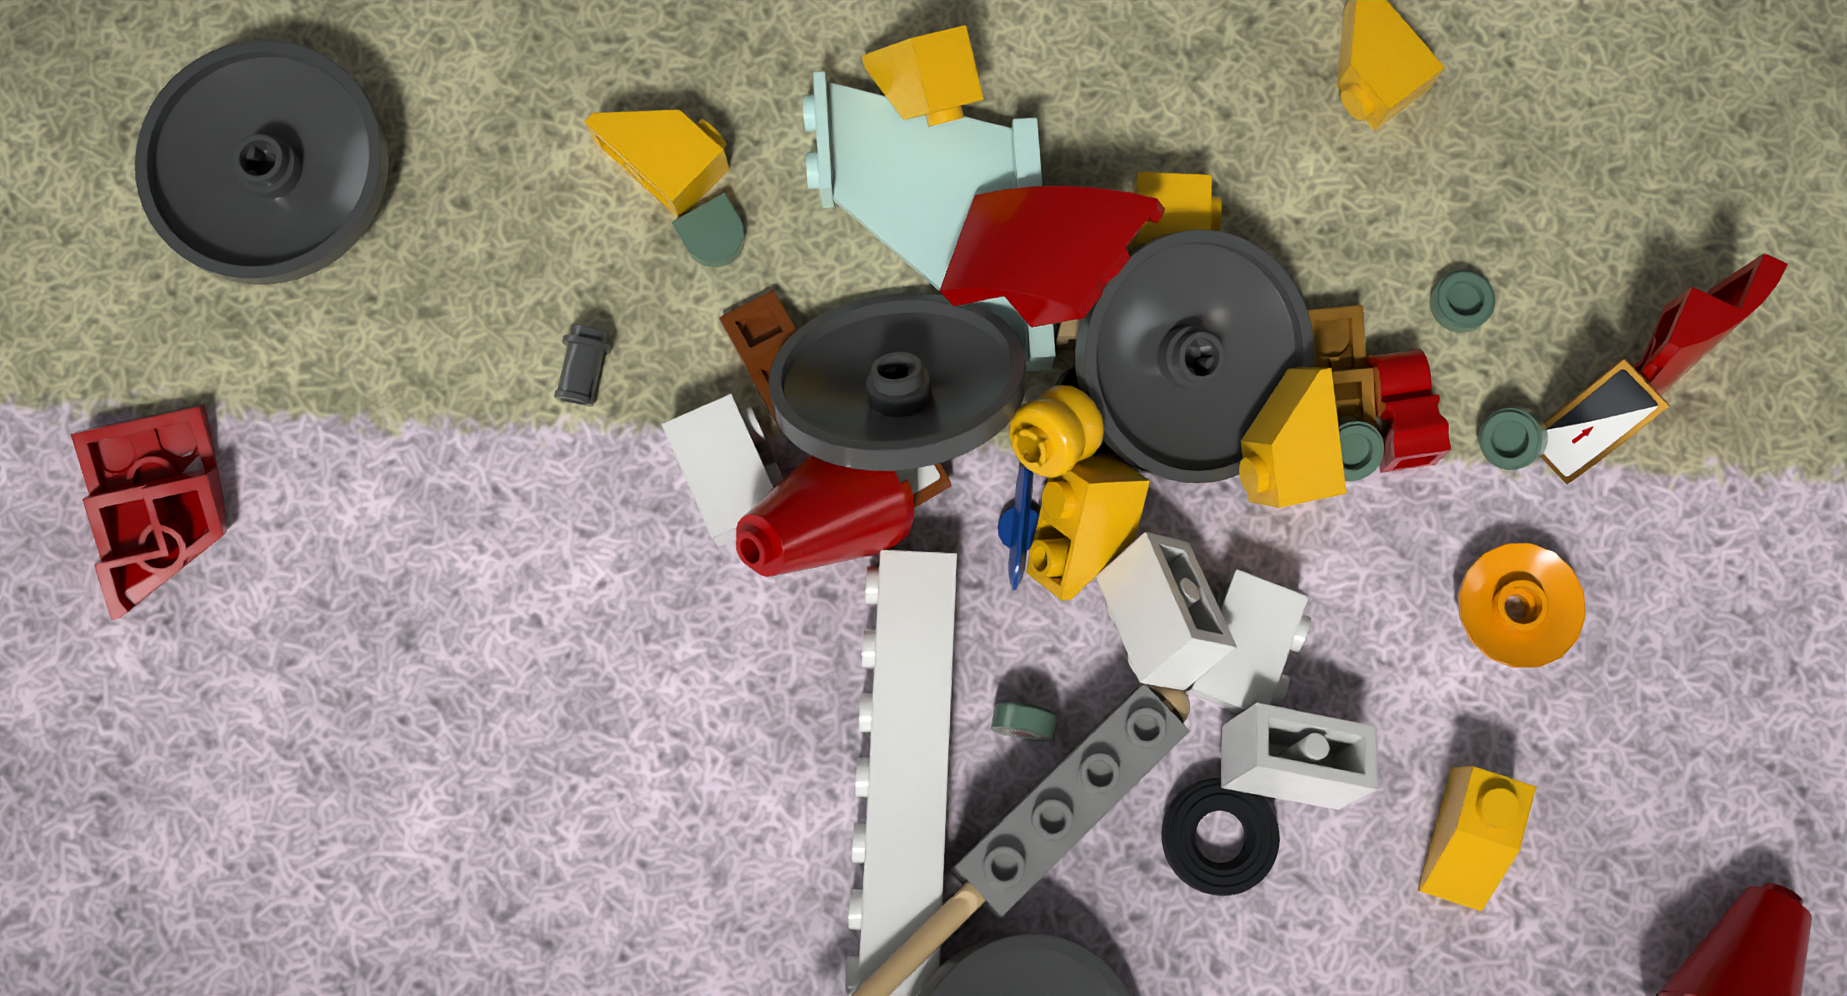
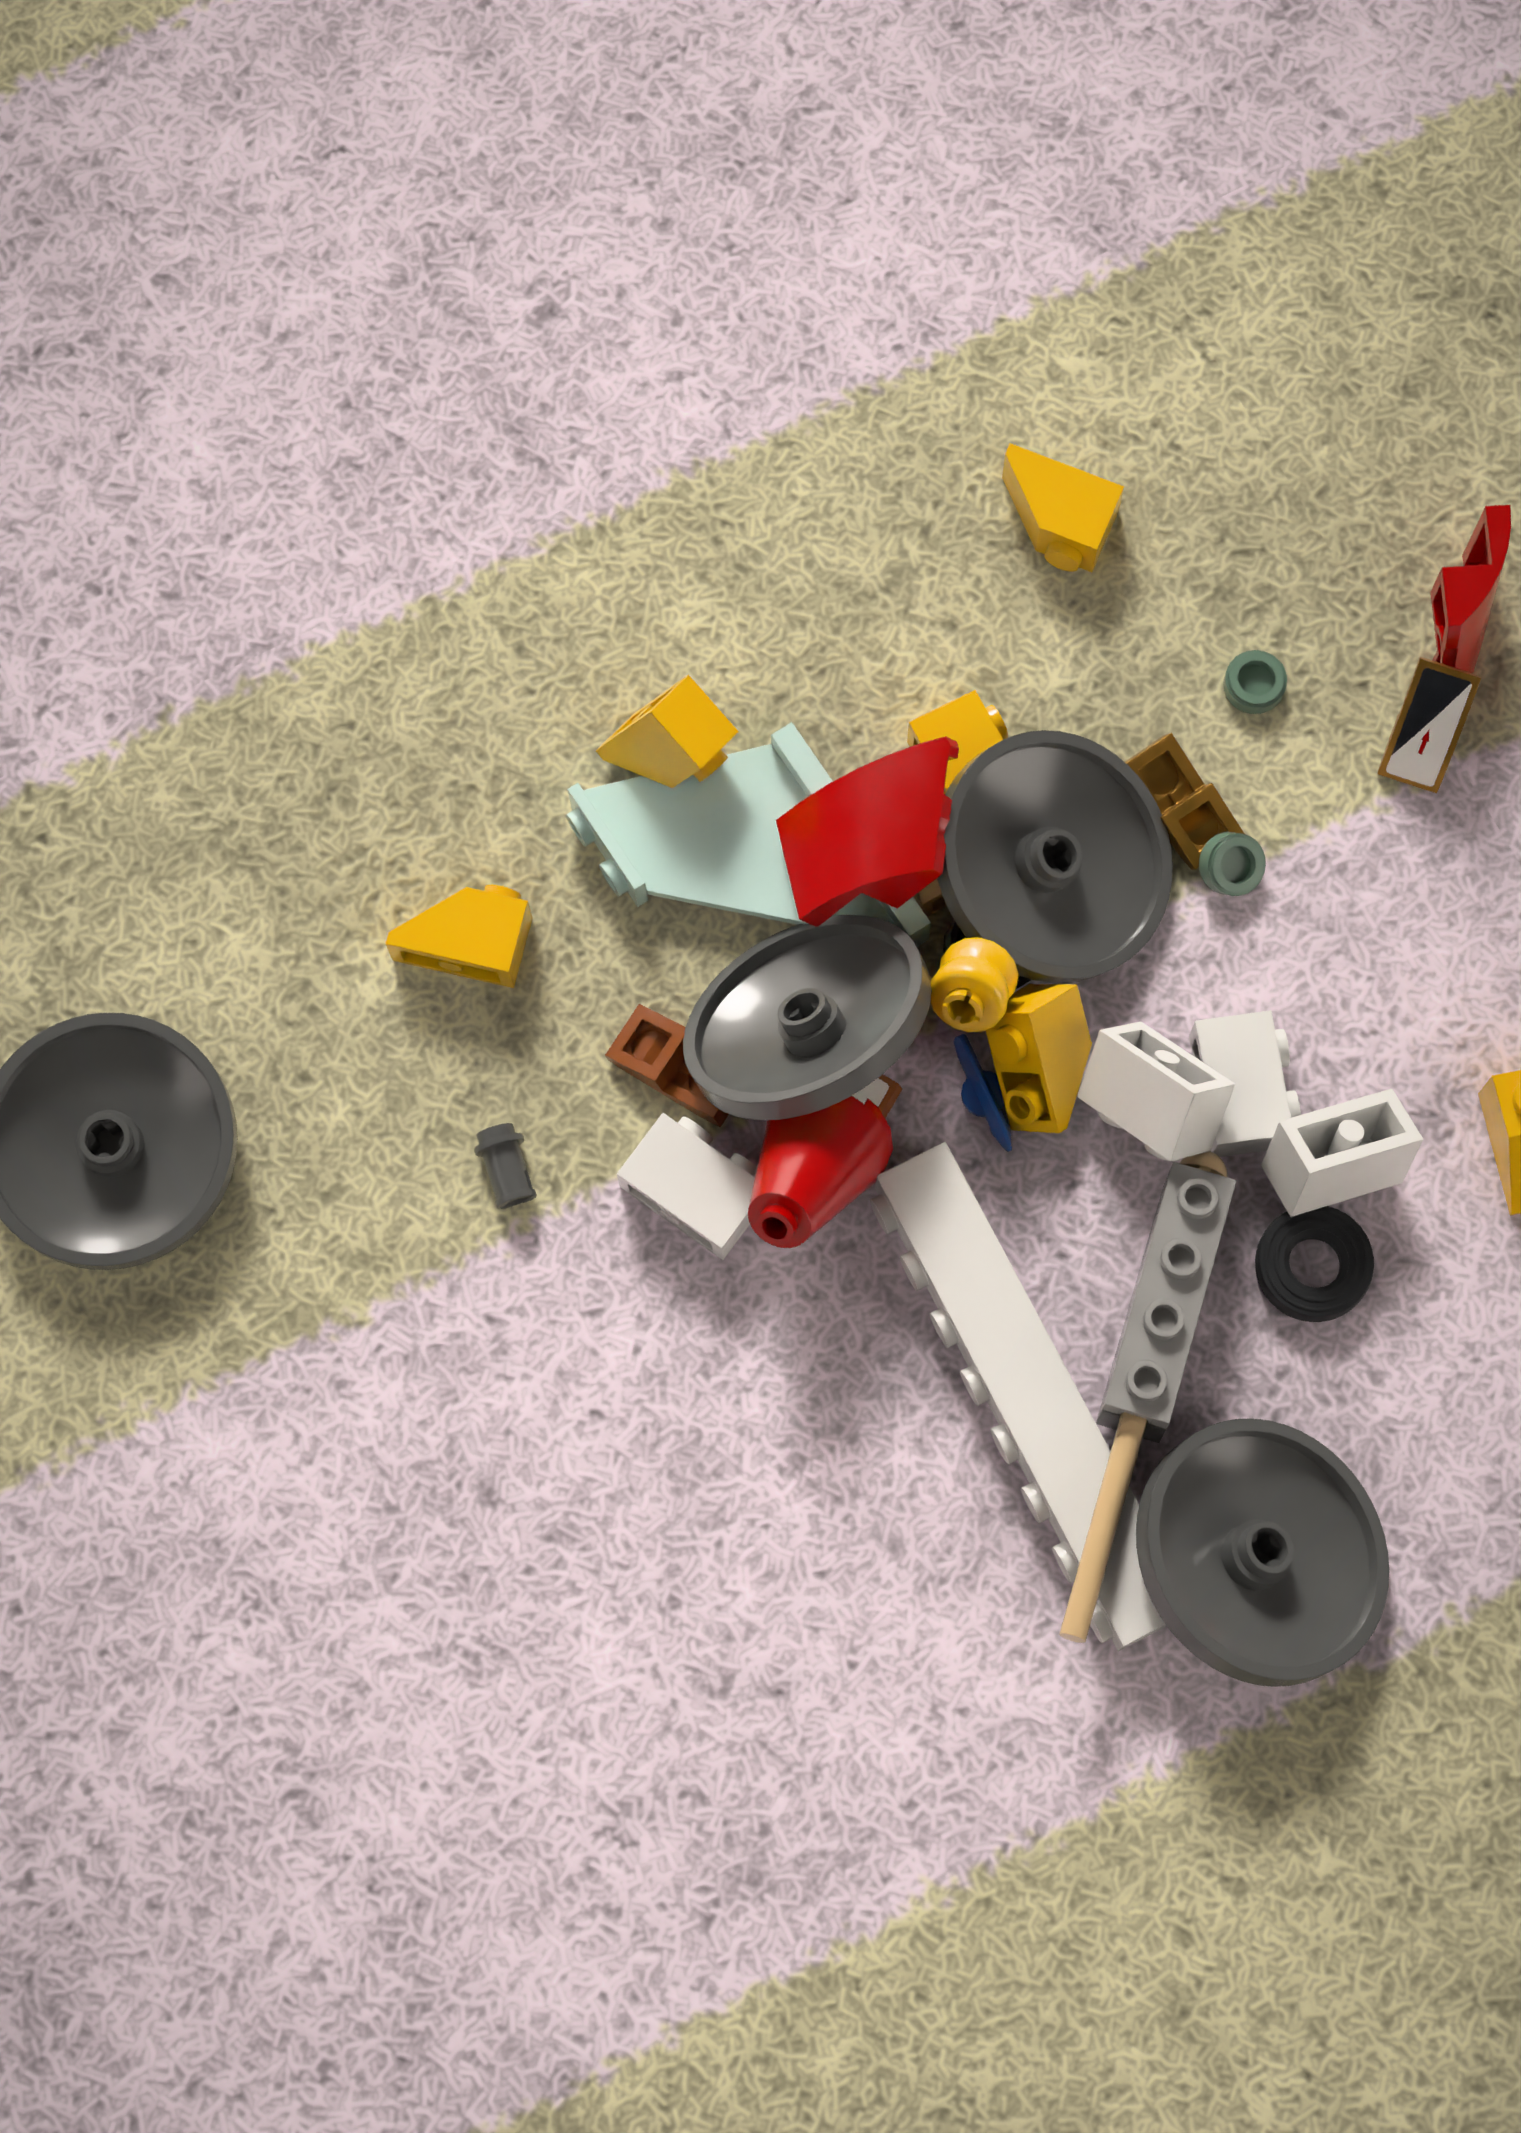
camera: 25 degrees left, 5 degrees down
(143, 506) = (179, 1517): red slope -> none
(712, 232) = (552, 983): sand green tile -> none
(1024, 721) = (1087, 1258): sand green tile -> none
(1294, 443) = (1182, 884): yellow slope -> none
(1405, 401) = (1258, 797): red leg -> none
(1513, 438) = (1367, 778): sand green tile -> none
(1550, 598) = (1474, 896): light orange dish -> none

